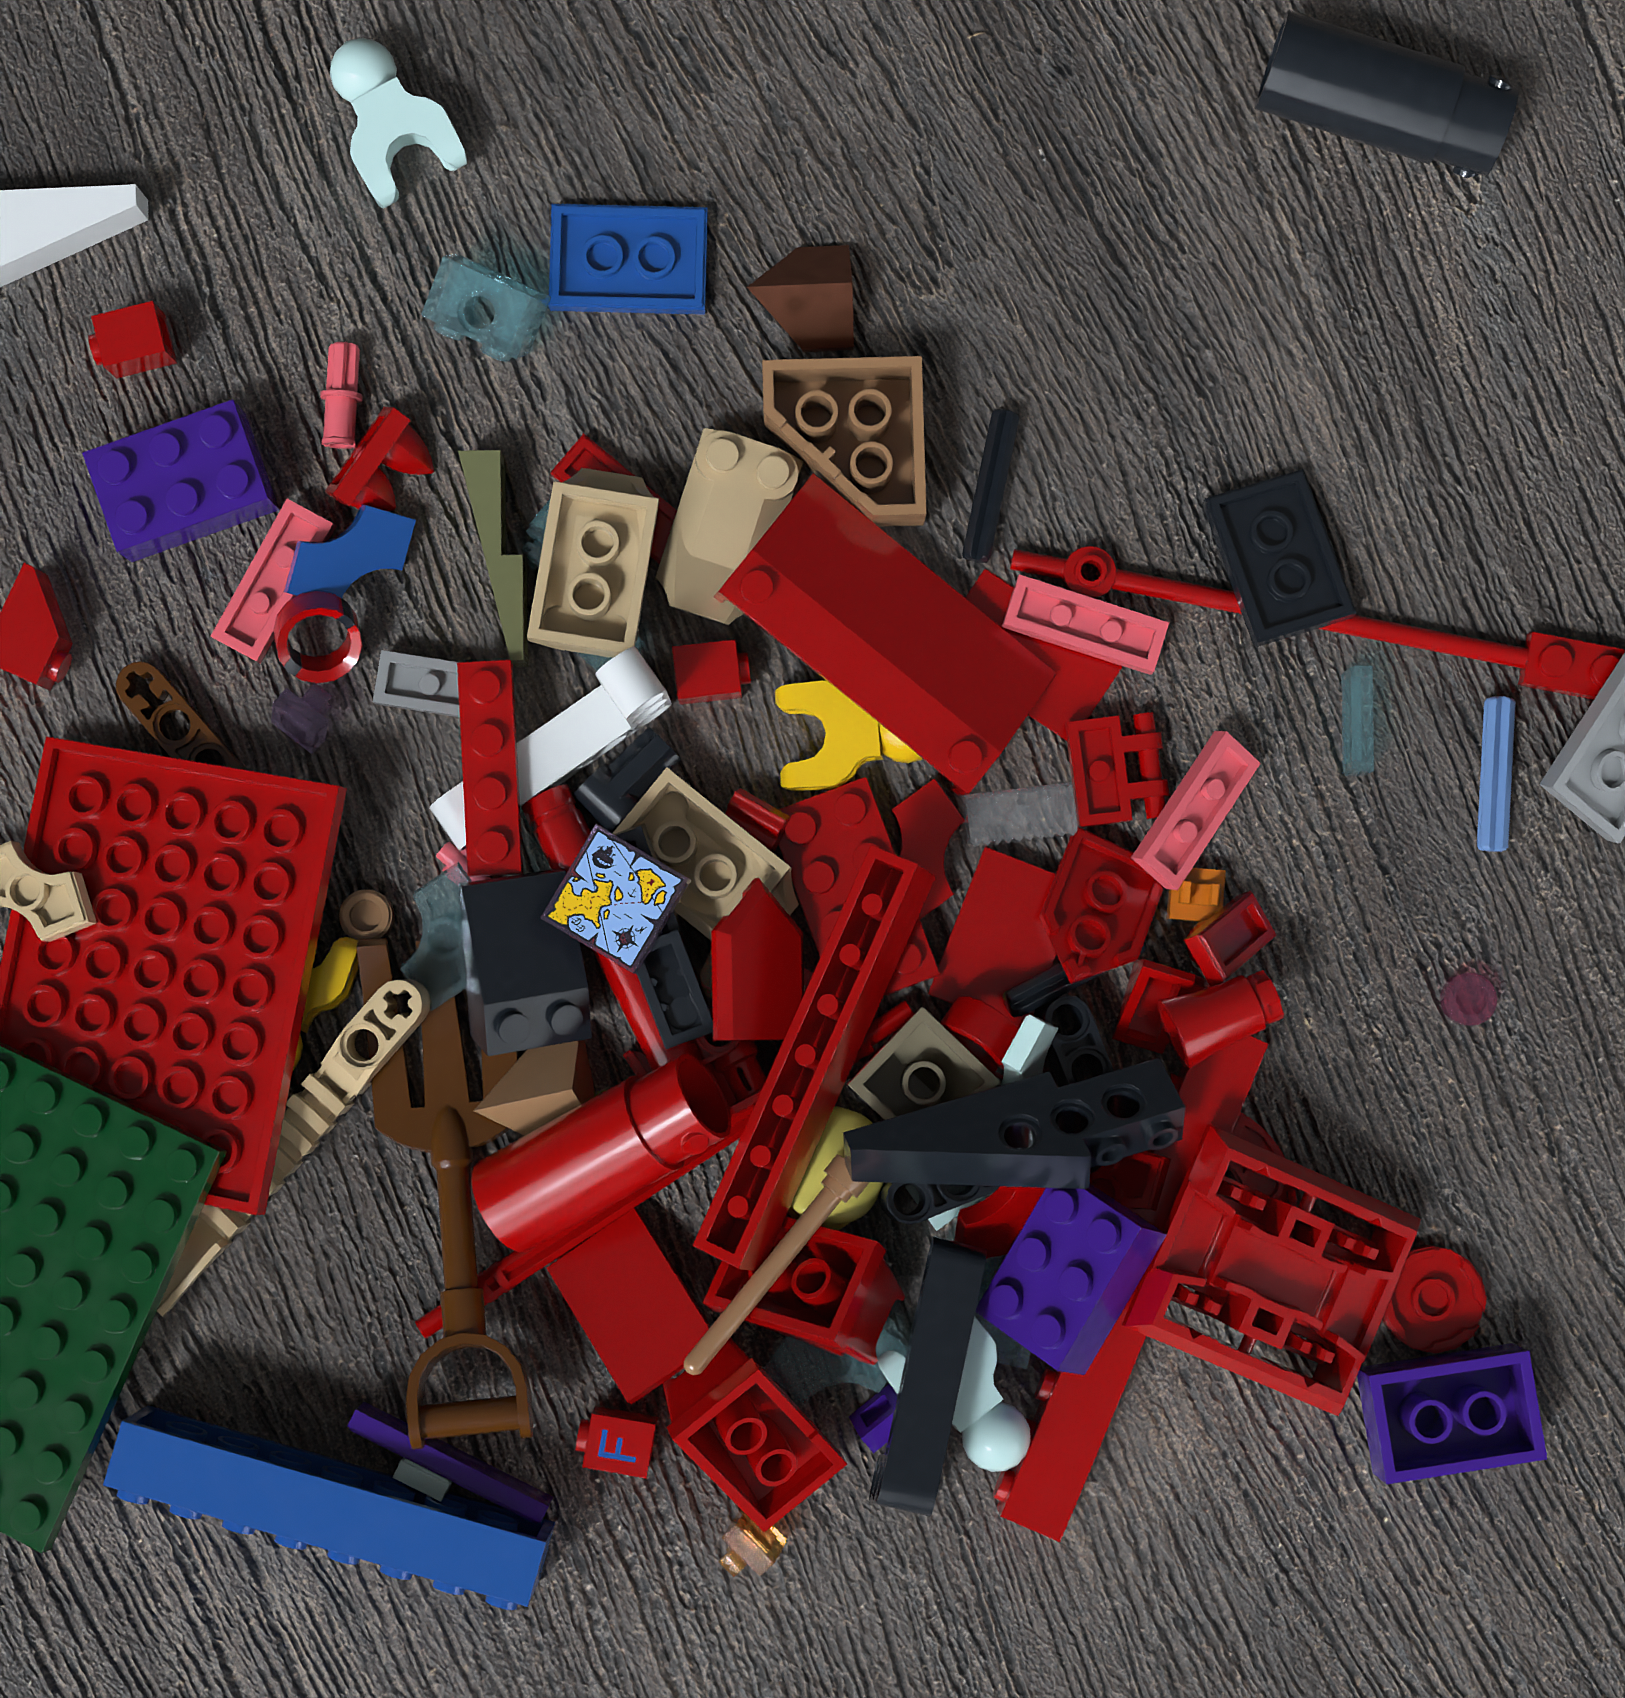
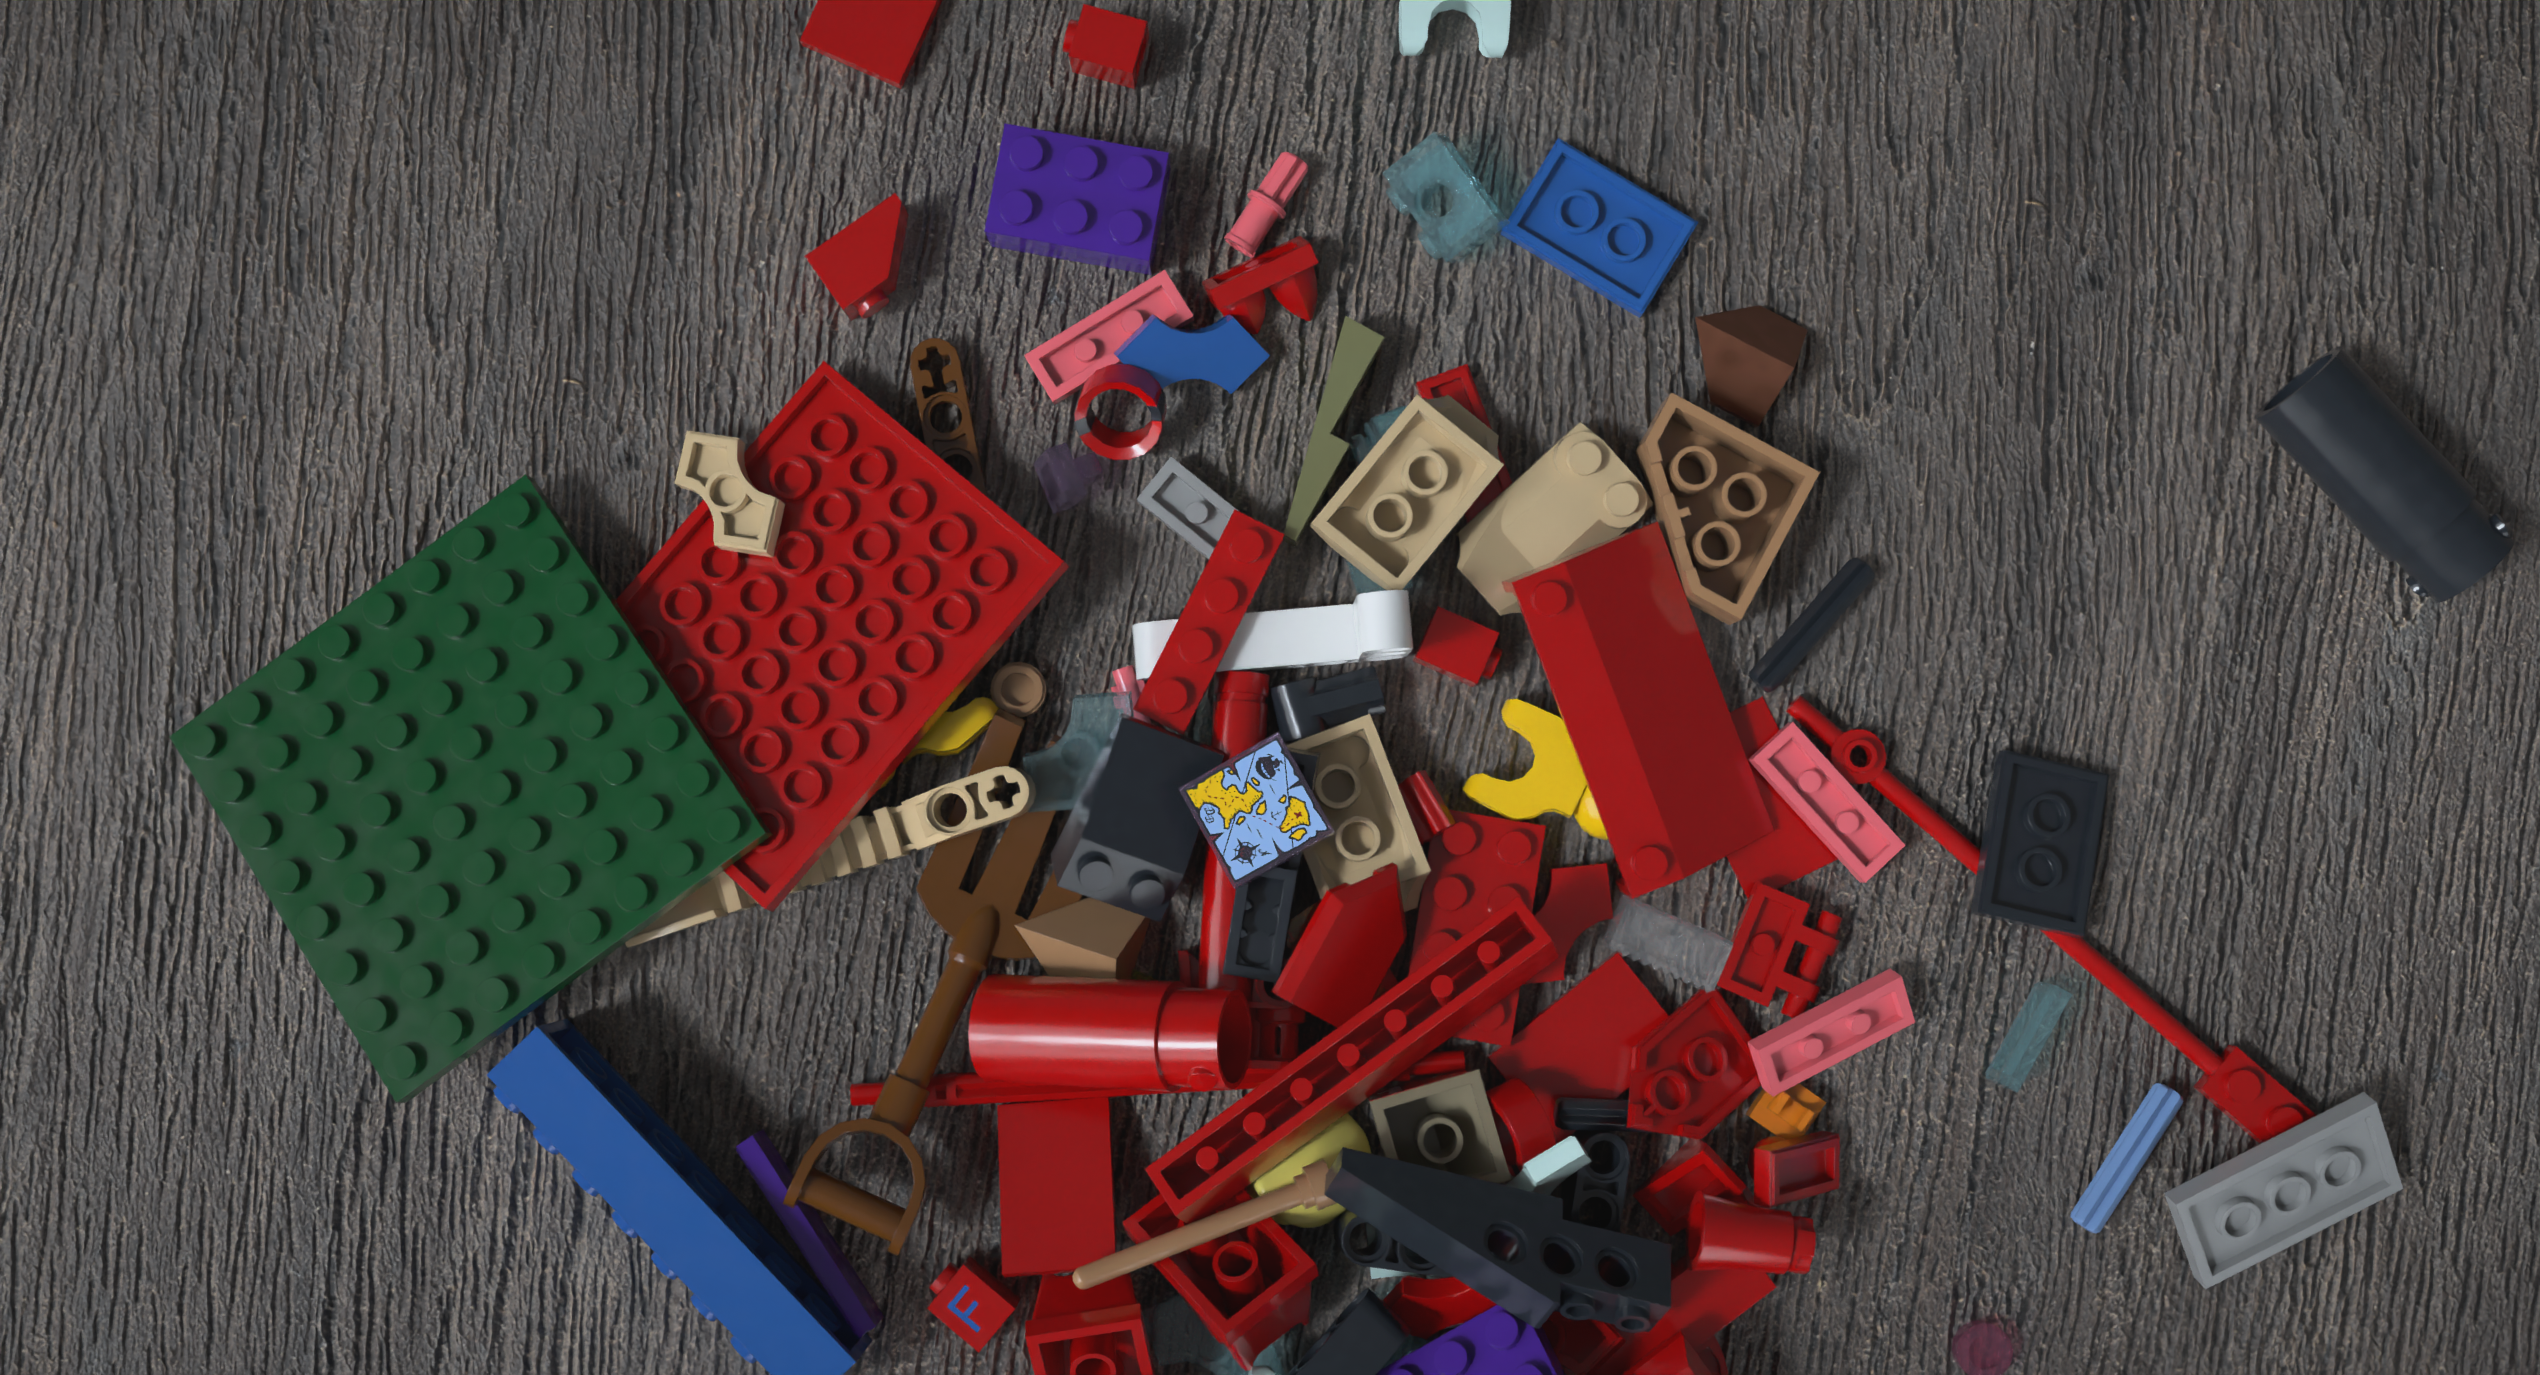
camera: 30 degrees right, 0 degrees up
(422, 1479) = (775, 1233): light aqua tile -> none

